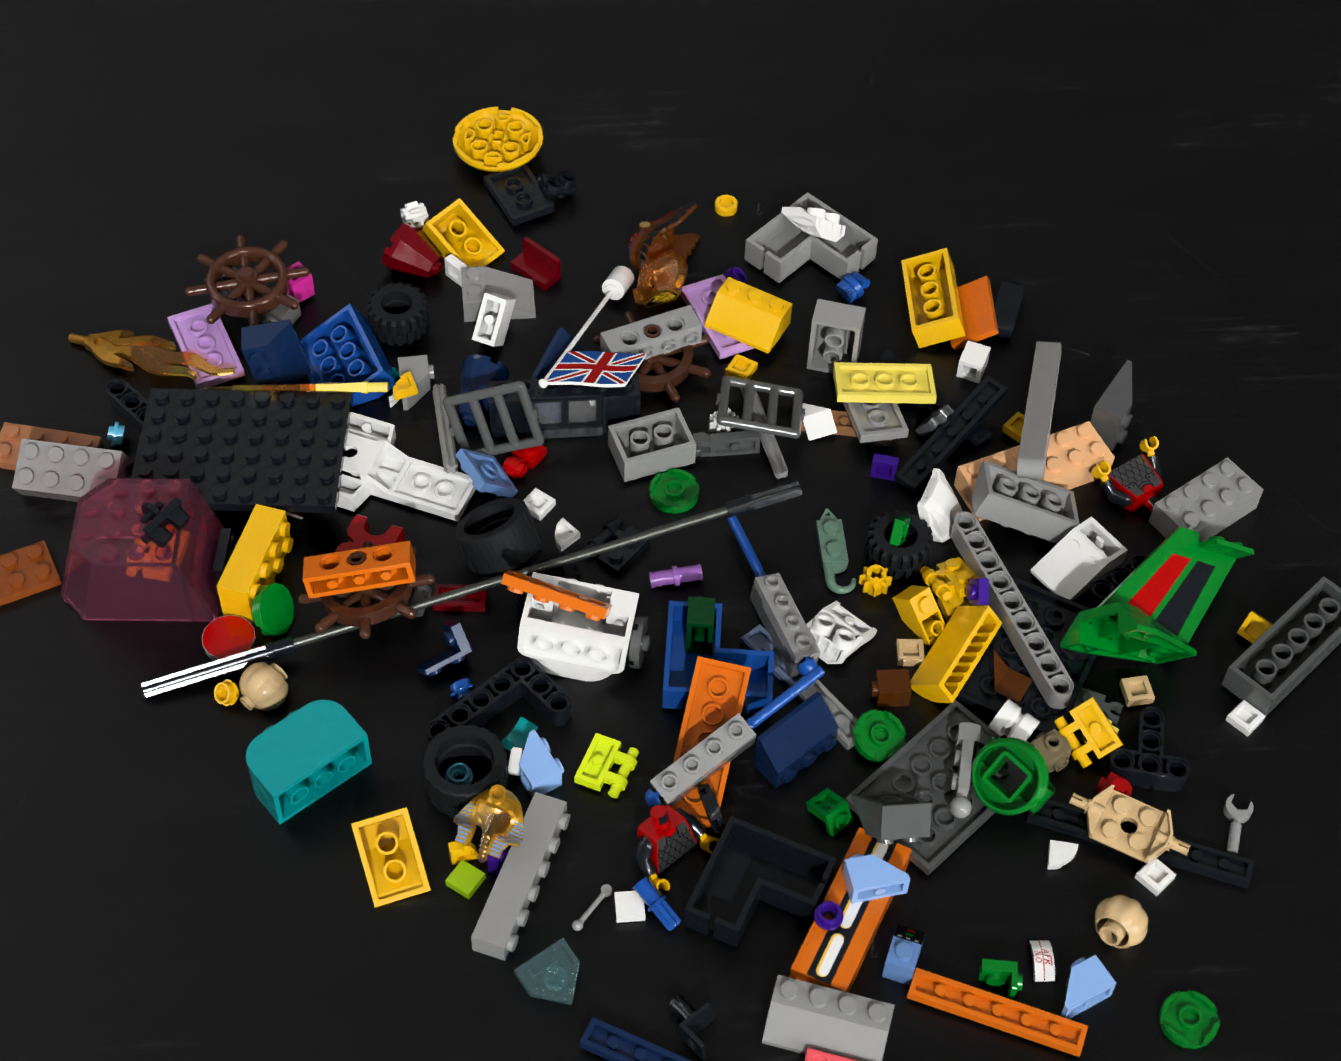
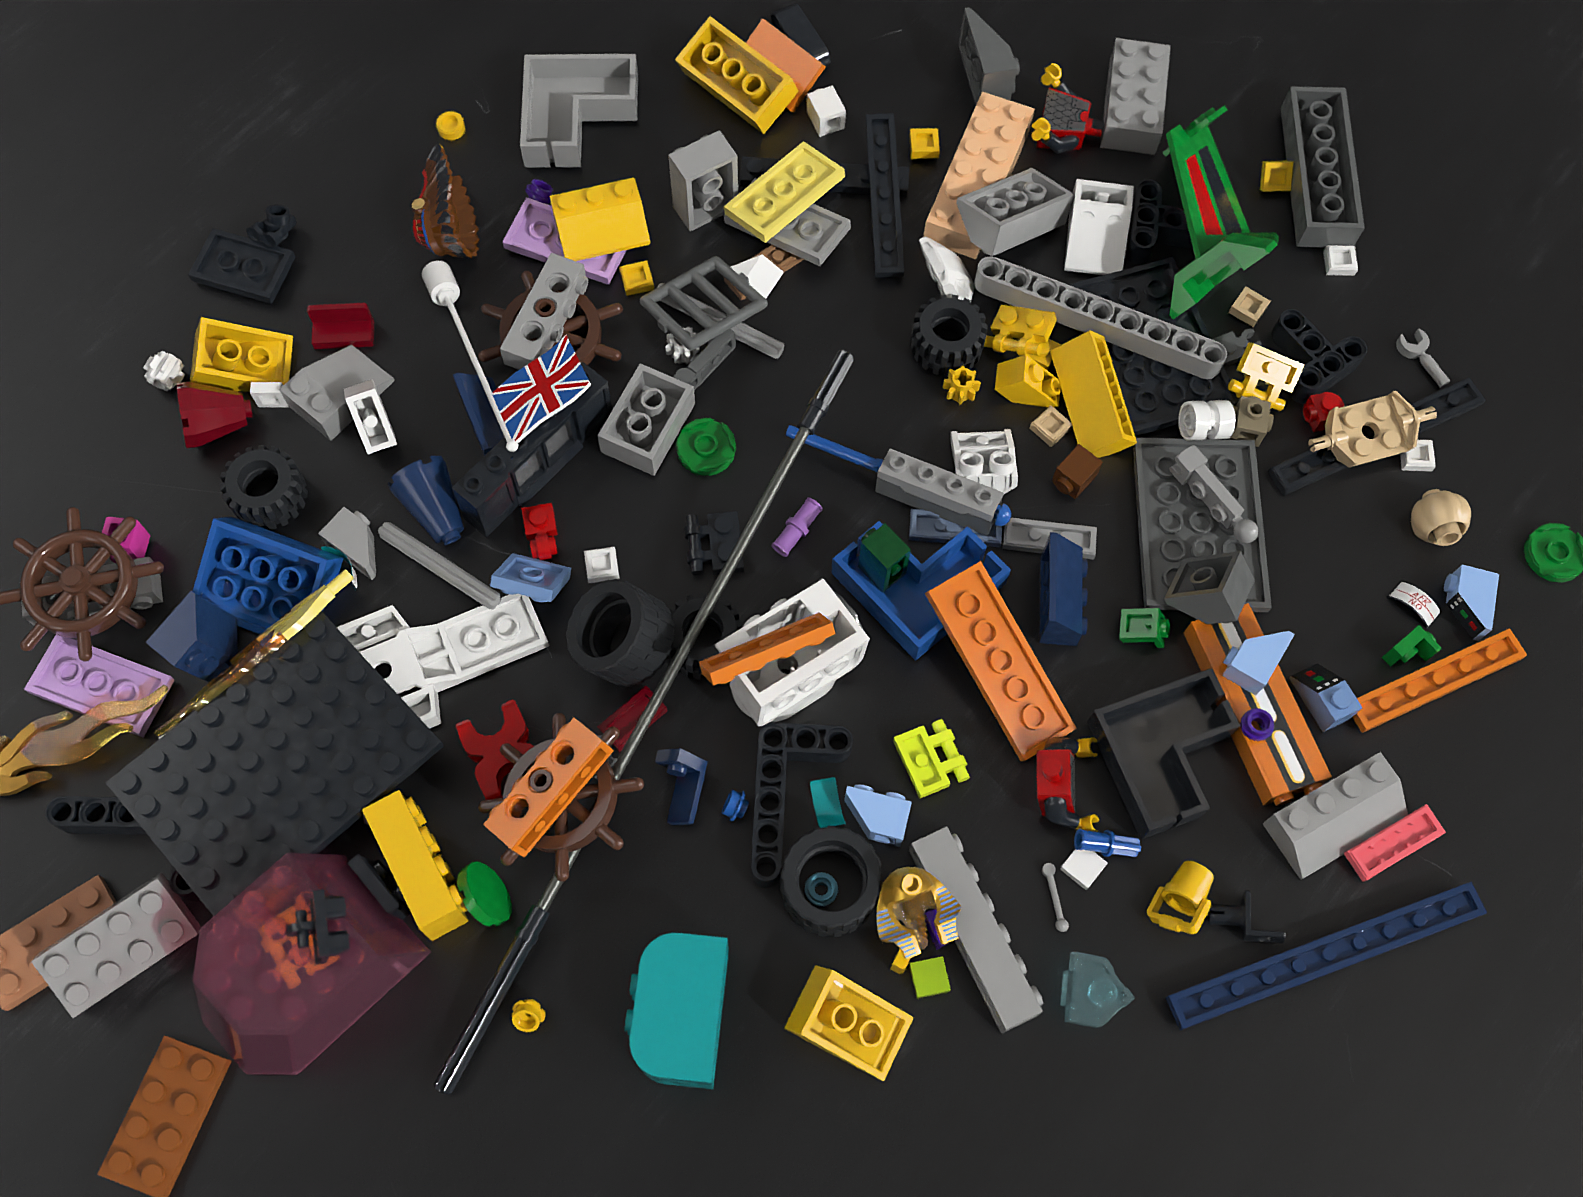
camera: 45 degrees left, 15 degrees up
(116, 434) = (112, 858): medium azure plate -> none
(228, 636) = (465, 959): red tile -> none
(263, 686) = (555, 976): tan plant -> none
(405, 386) = (361, 557): yellow tile -> none
(497, 139) = (162, 224): yellow brick -> none
(497, 393) = (482, 493): dark grey bar -> none
(515, 756) = (857, 826): white tile -> none
(565, 534) = (657, 573): white tile -> none
(667, 276) = (484, 247): clear orange helmet -> none
(673, 973) = (1185, 894): none -> yellow piece
(711, 809) = (1064, 716): black tile -> none
(717, 749) = (1029, 664): light grey piece -> none
(816, 222) = (565, 81): white slope -> none
(833, 551) = (895, 387): sand green plate -> none
(852, 286) = (651, 118): blue piece -> none
(878, 735) = (1110, 524): green tile -> none
(884, 467) = (858, 271): dark purple plate -> none
(900, 530) = (949, 322): green tile -> none
(934, 420) = (853, 194): dark grey plate -> none
(978, 591) = (1065, 324): dark purple plate -> none
(1008, 681) = (1160, 383): reddish brown sticker -> none
(1032, 792) = (1287, 469): green piece -> none
(1039, 410) = (939, 113): light grey beam -> none
(1060, 854) = (1338, 500): white tile -> none

